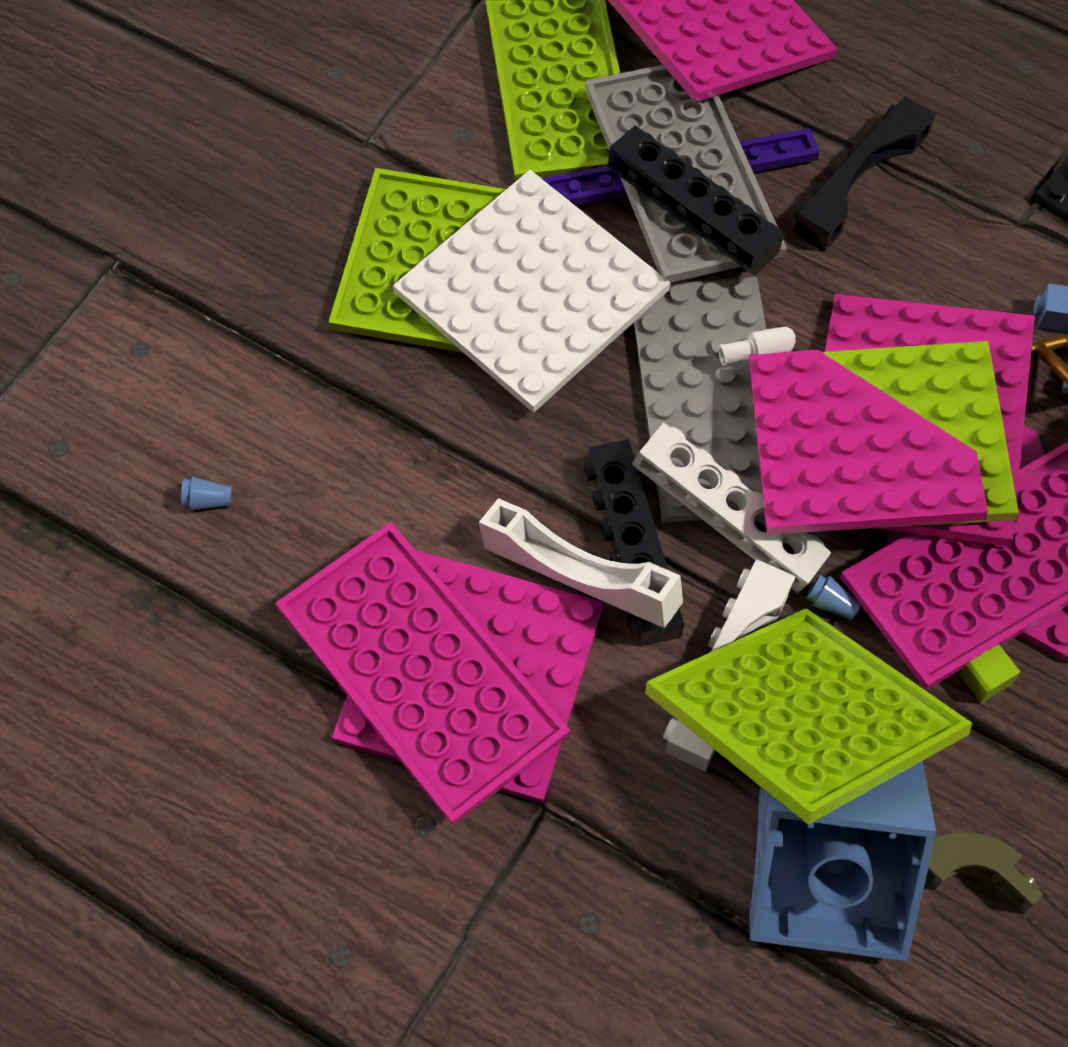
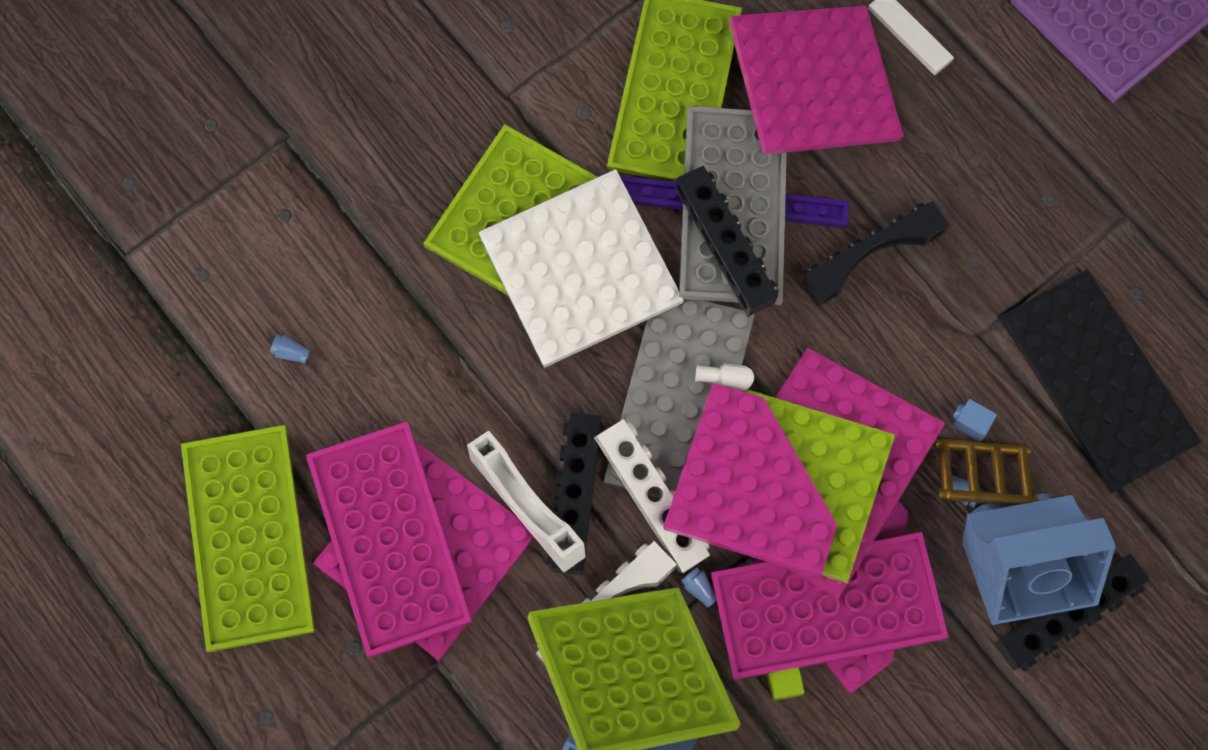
camera: 20 degrees right, 10 degrees up
(233, 740) = (247, 539): none -> lime plate

